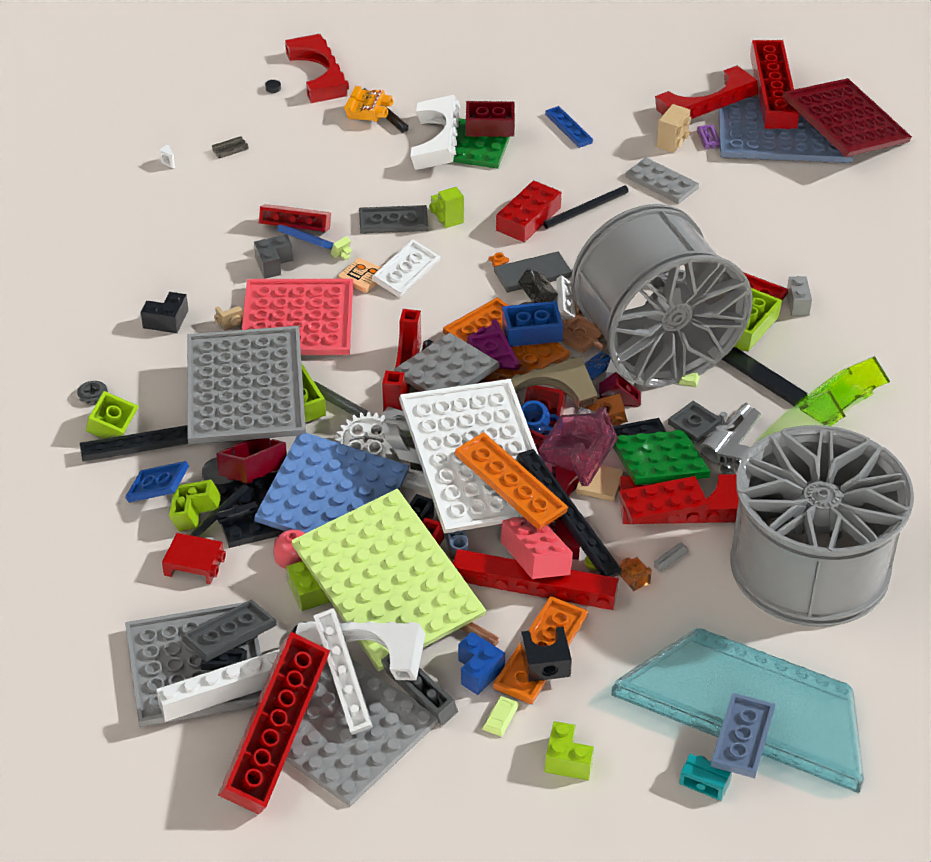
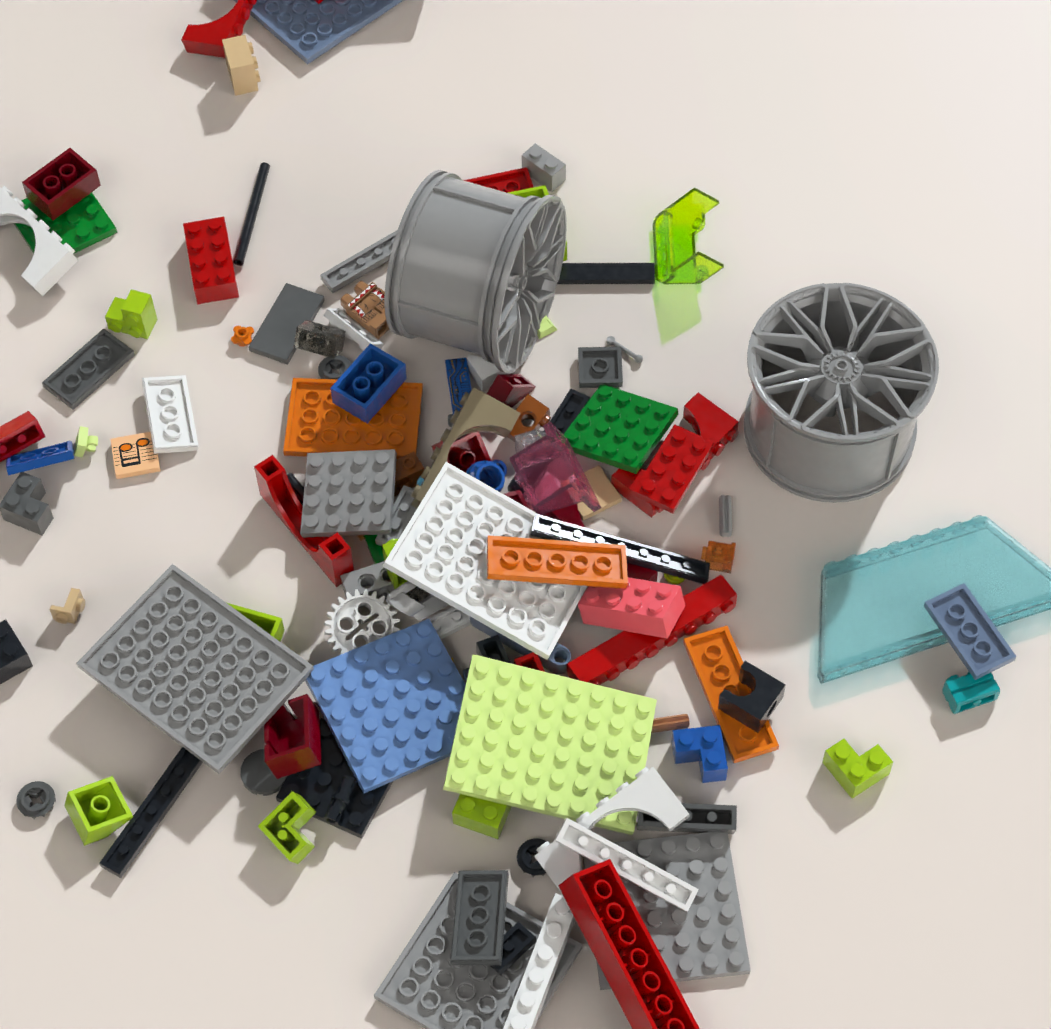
camera: 45 degrees left, 15 degrees up
(157, 481) = (229, 836): blue tile -> none
(194, 556) = (352, 877): red panel -> none
(226, 505) = (320, 813): black bar -> none
(283, 550) = (424, 790): coral cylinder -> none
(315, 305) = (128, 543): coral plate -> none
(341, 401) = (287, 604): dark grey axle -> none
(494, 344) = (357, 433): magenta wing -> none
(500, 716) = (766, 782): yellowish green tile -> none
(569, 126) = (130, 133): blue tile -> none
(581, 334) = (413, 353): nougat plate -> none
(662, 180) = (285, 130): light grey plate -> none
(709, 143) = (269, 50): medium lavender tile -> none
(726, 445) = (656, 371): light grey panel -> none

